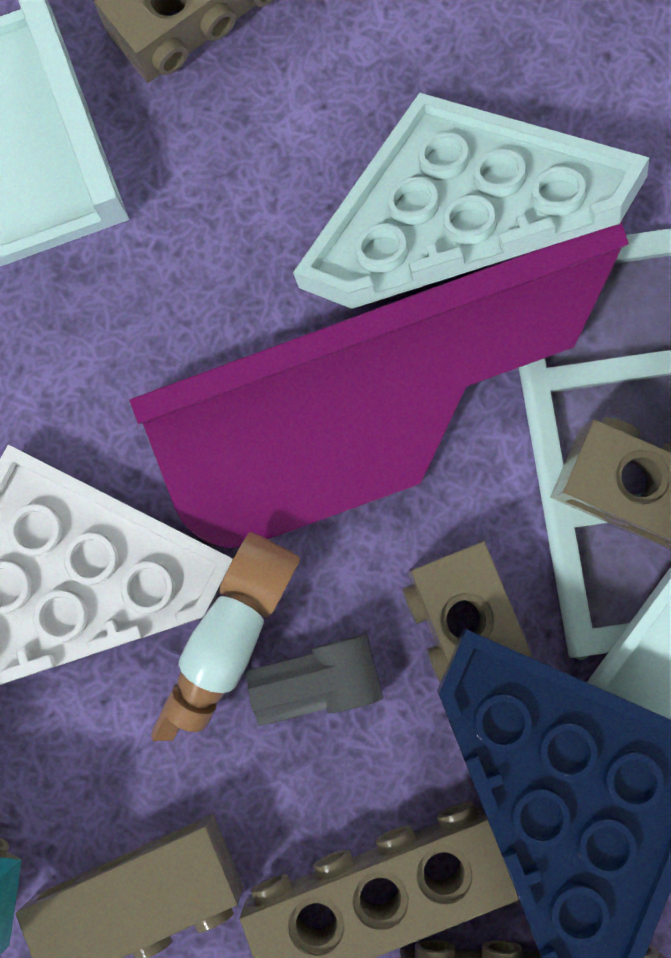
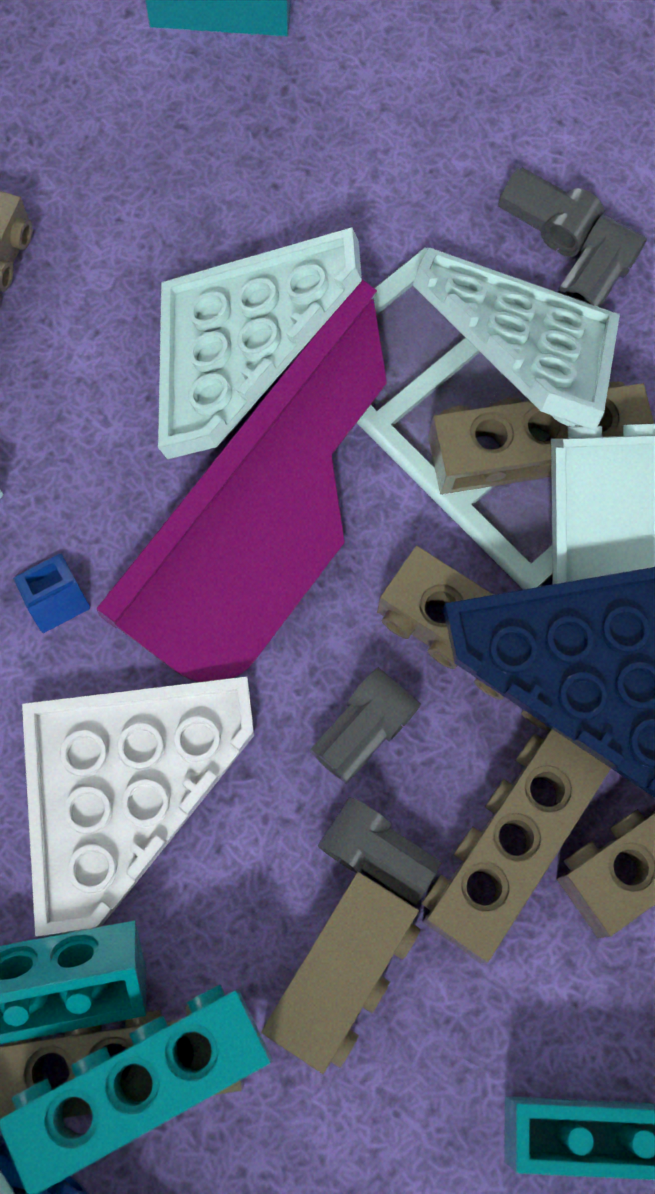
camera: 40 degrees left, 10 degrees down
(109, 348) = (51, 593): none -> blue slope
(226, 635) = (280, 733): piece -> none
(240, 801) = (370, 846): none -> dark grey piece

